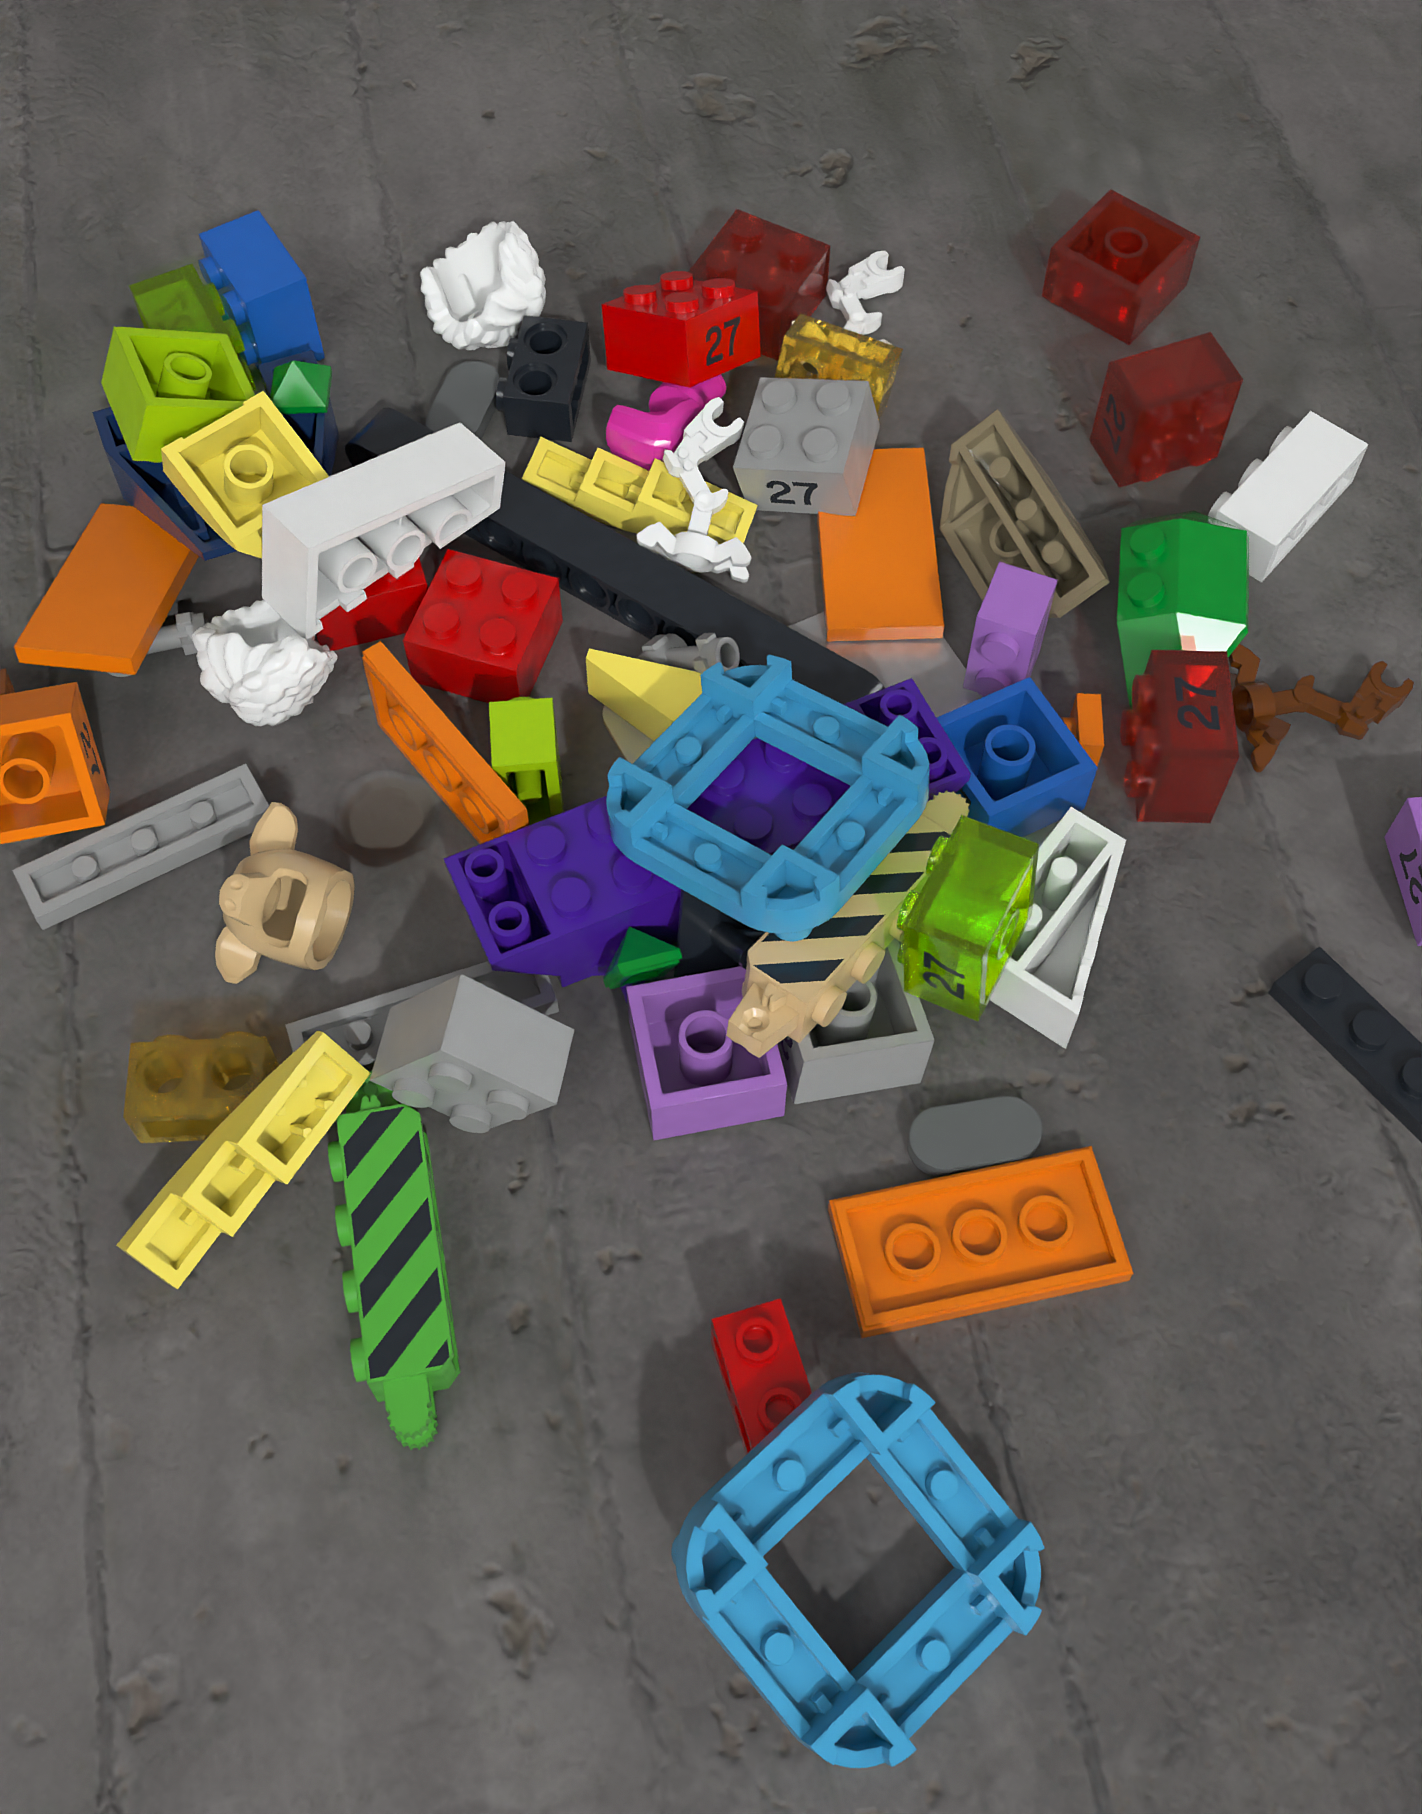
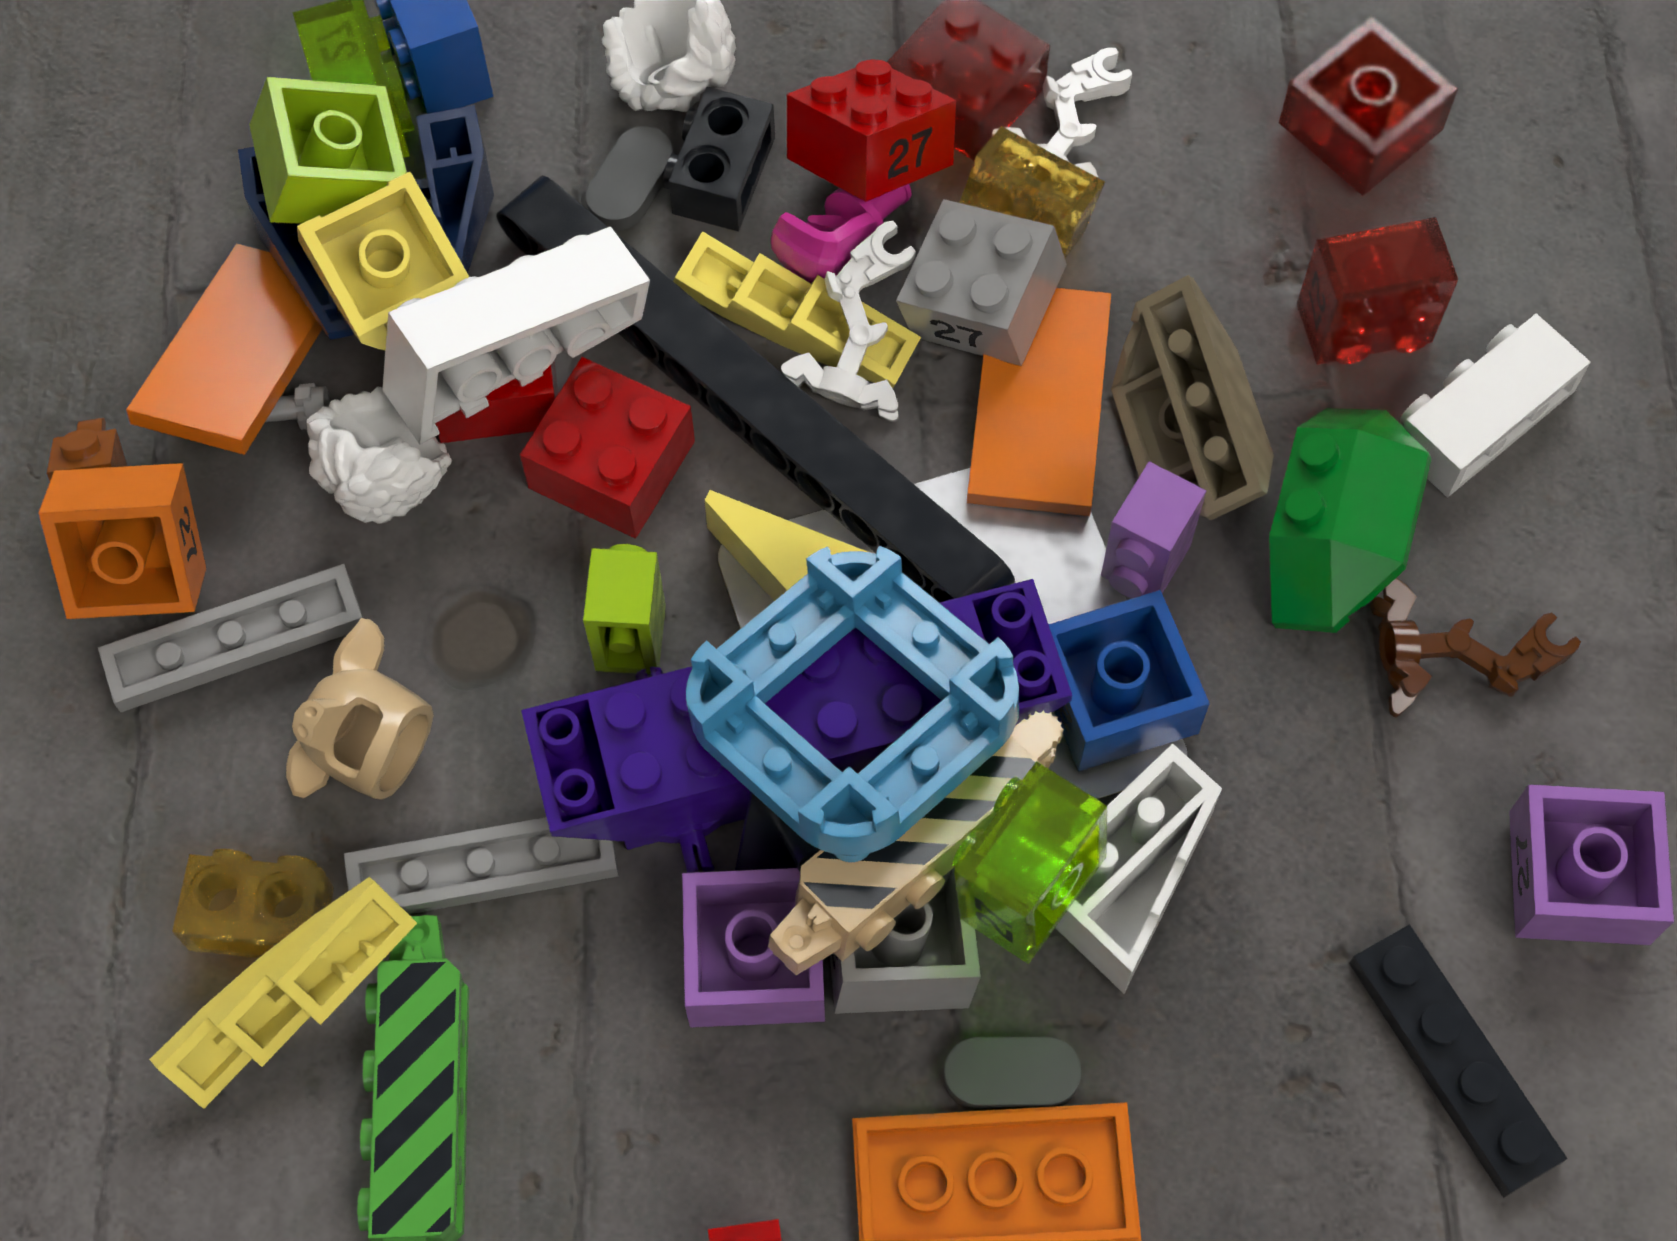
camera: 10 degrees right, 5 degrees up
(301, 387) = (455, 154): green slope -> none
(440, 750) = (539, 585): orange tile -> none
(472, 1055) = (517, 924): light grey brick -> none
(640, 959) = (703, 840): green slope -> none
(674, 652) = (799, 503): light grey bar -> none
(1087, 724) = (1211, 651): orange plate -> none
(1180, 736) = (1307, 675): clear red brick -> none

